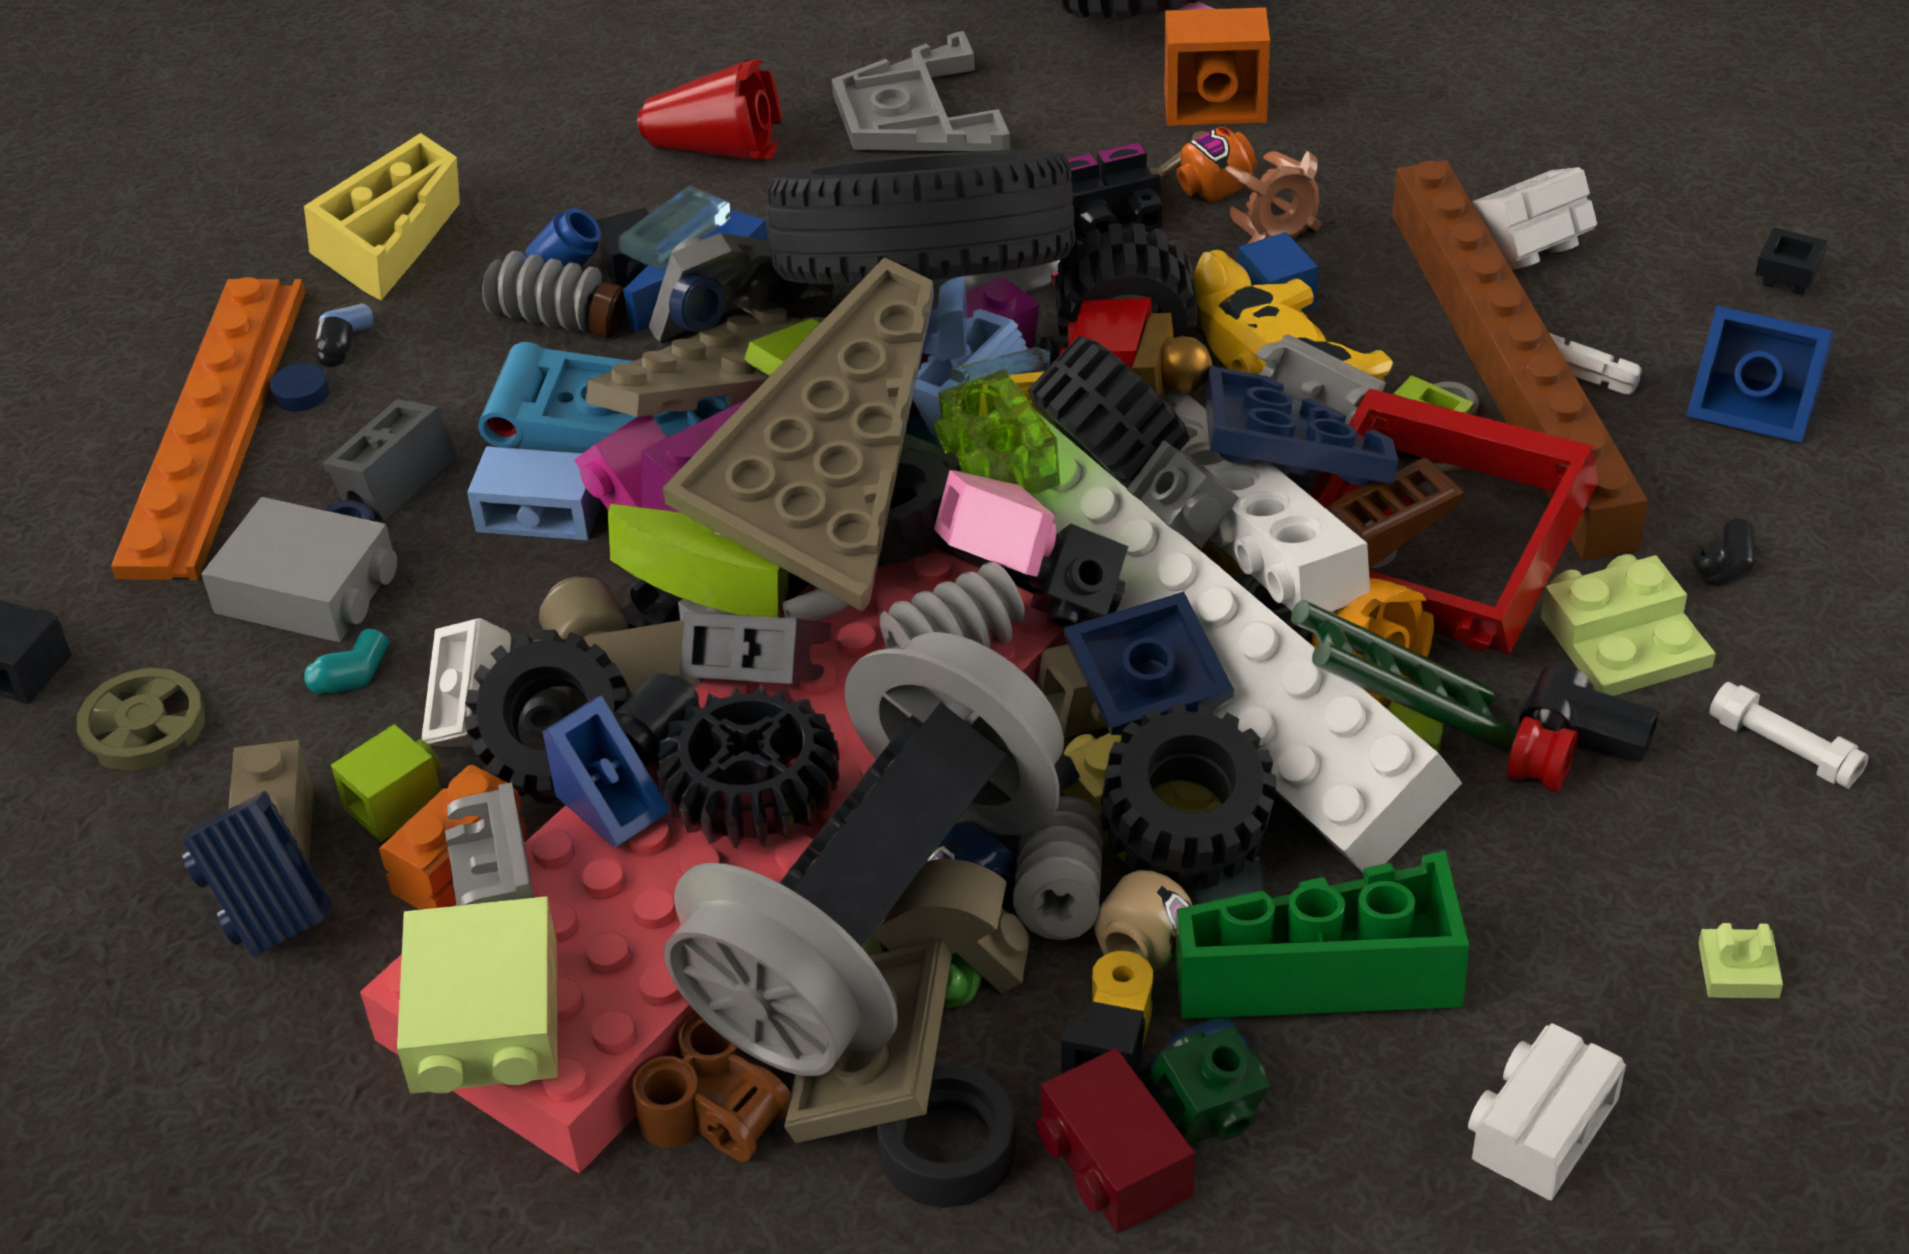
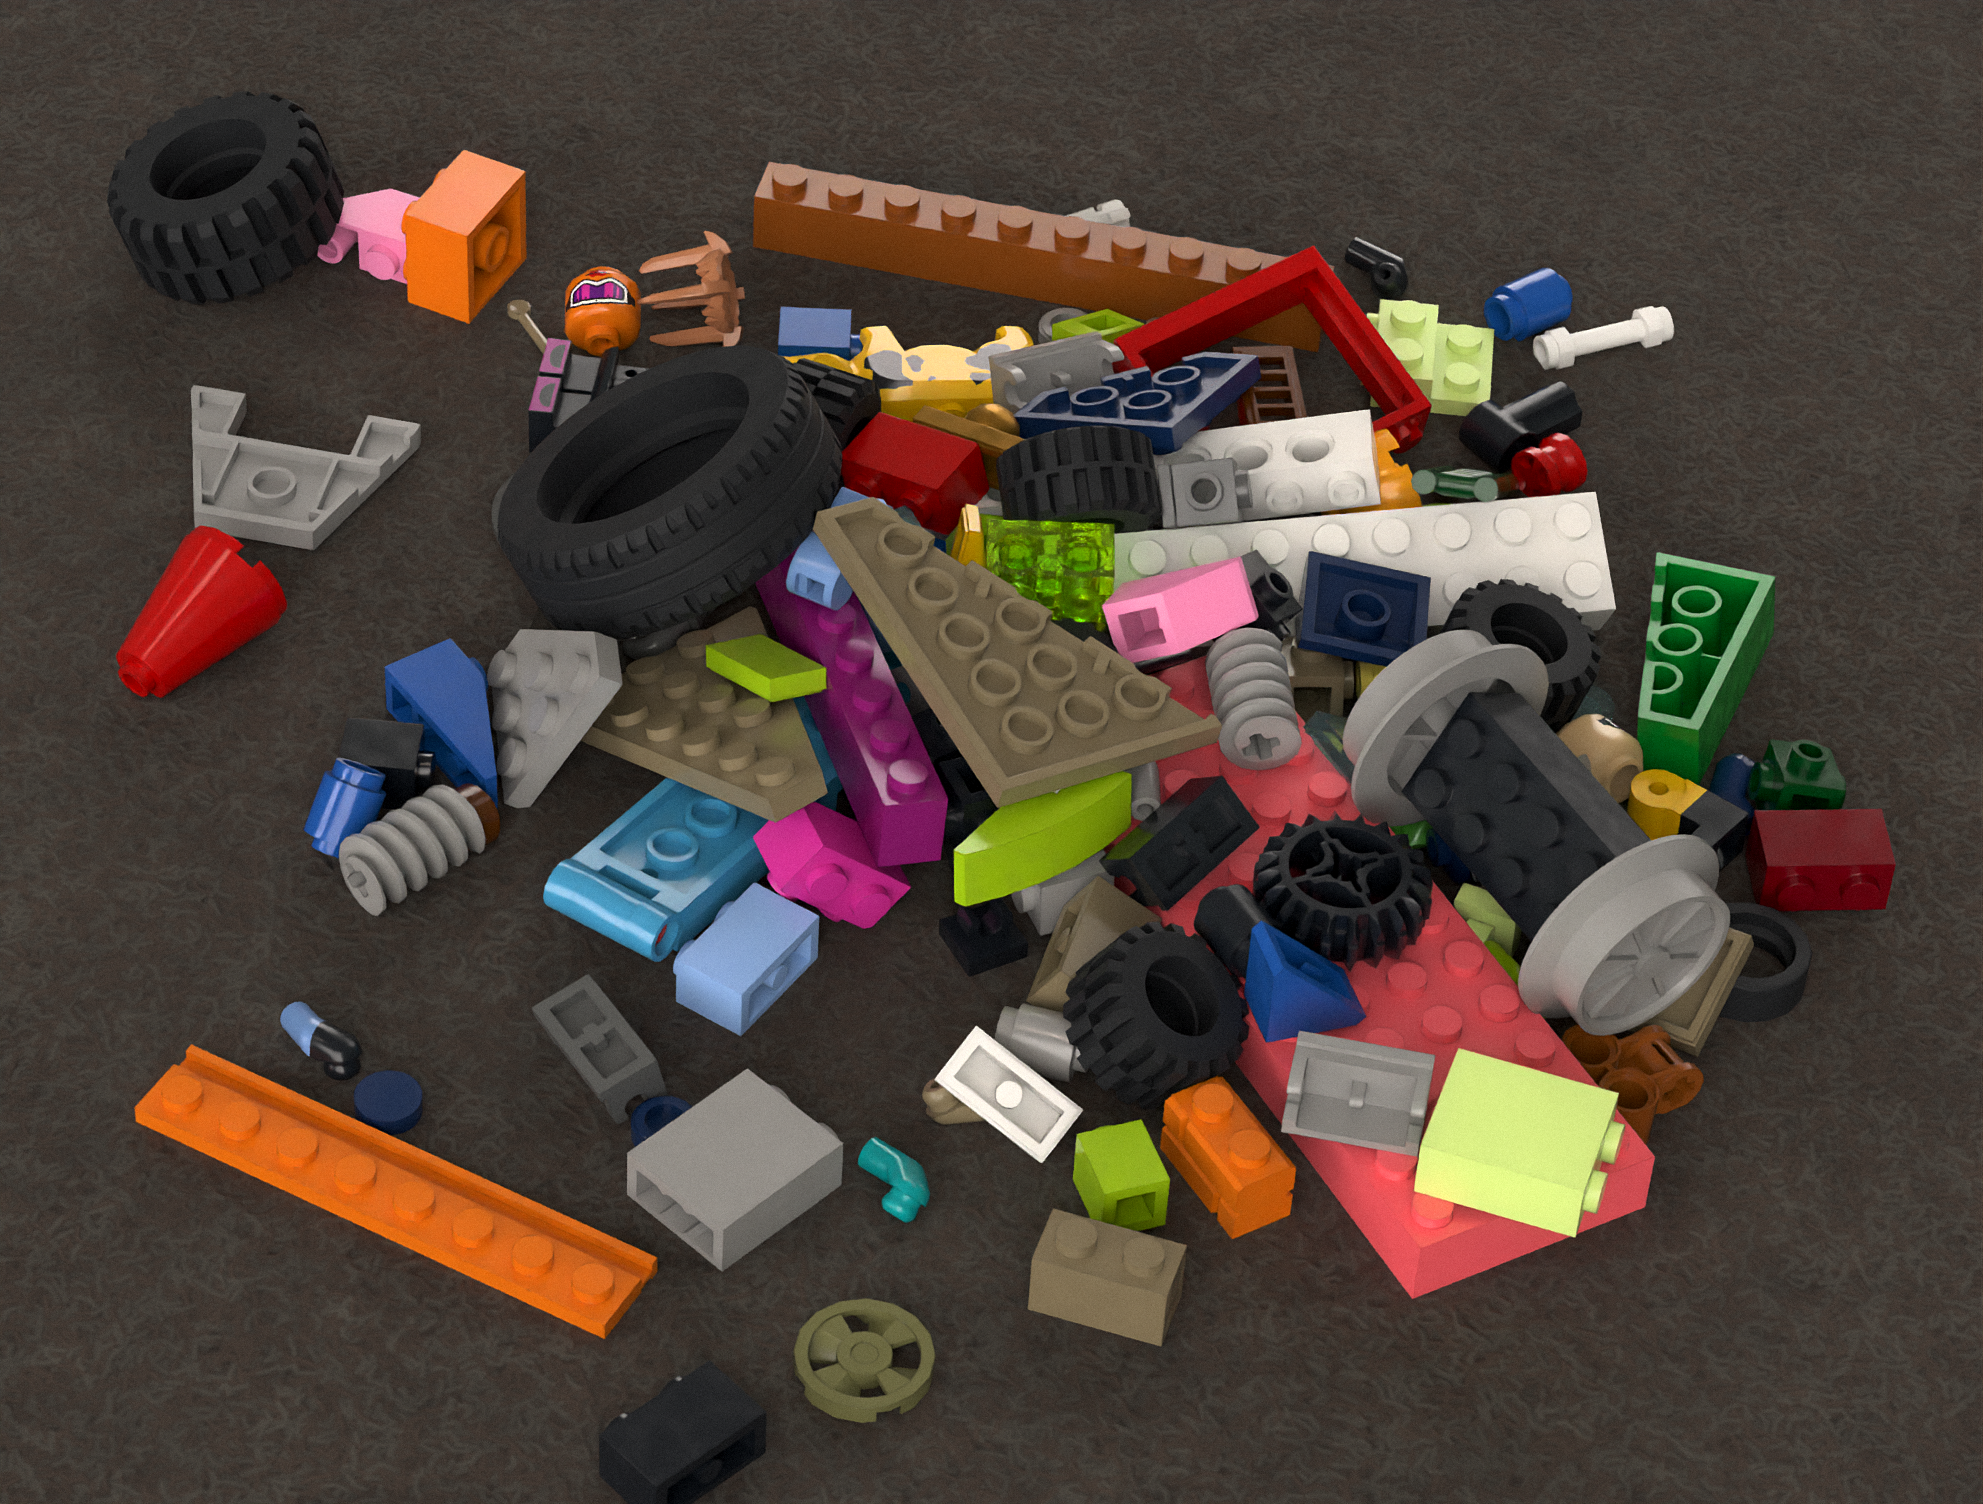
camera: 70 degrees left, 0 degrees up
(255, 875) = (1220, 1284): dark blue brick -> none
(384, 214) = (160, 934): light yellow wedge -> none
(581, 607) = (978, 980): dark tan head -> none
(680, 218) = (420, 702): clear light blue tile -> none
(697, 302) = (636, 709): dark blue tile -> none
(1538, 215) = (870, 141): white brick -> none
(1546, 1110) = (1909, 629): white brick -> none
(1740, 962) = (1816, 472): yellowish green tile -> none
(1760, 374) = (1186, 140): blue slope -> none
(1770, 662) = (1528, 305): none -> blue brick
(1791, 259) = (1052, 48): black tile -> none

